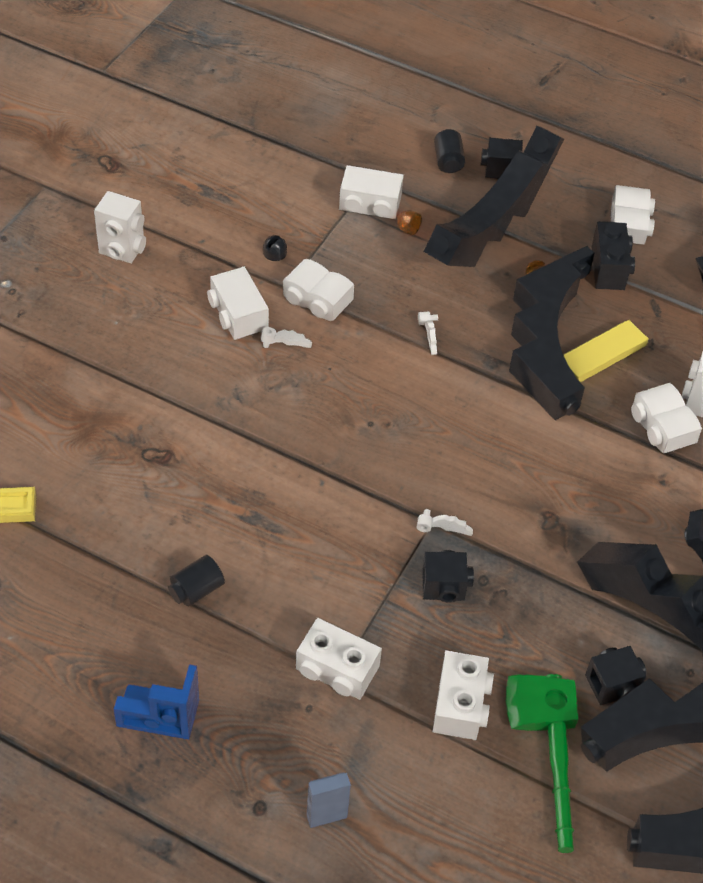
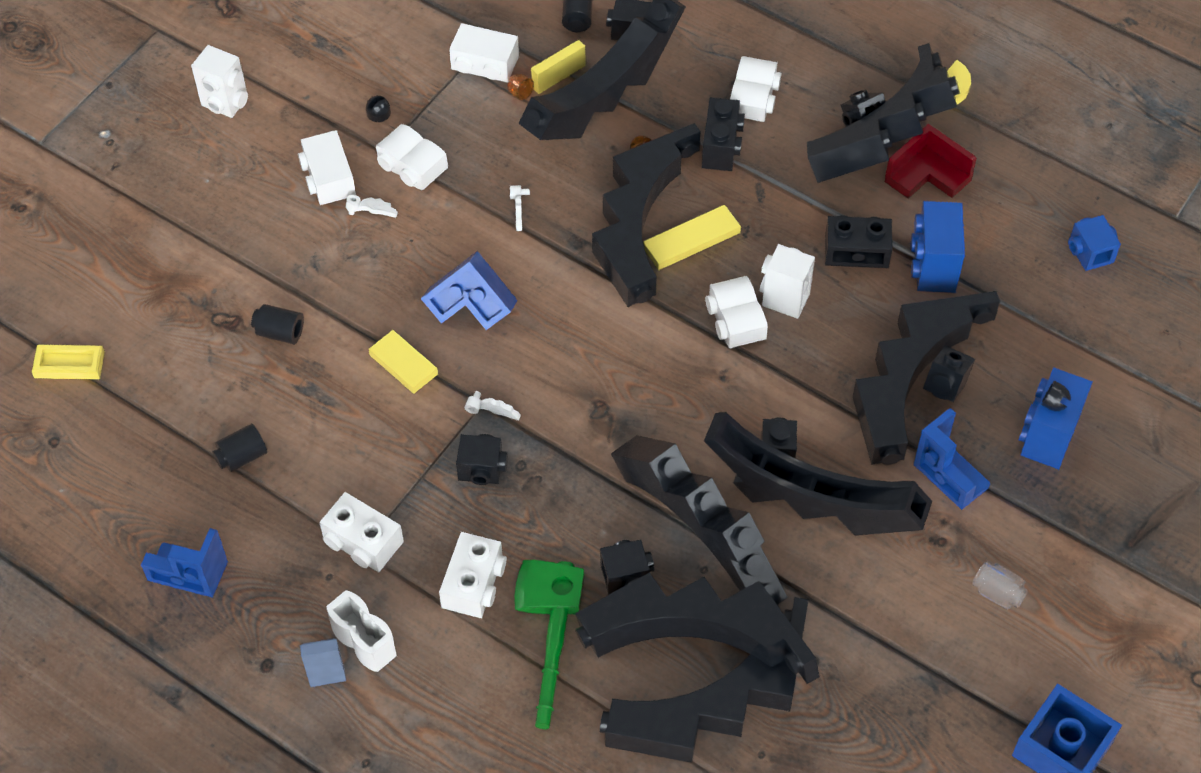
camera: 10 degrees right, 5 degrees up
(213, 454) = (278, 323): none -> black brick
(346, 484) = (403, 361): none -> light yellow tile
(368, 766) = (361, 631): none -> white brick
(403, 406) = (472, 285): none -> panel
(443, 202) = (558, 66): none -> light yellow tile

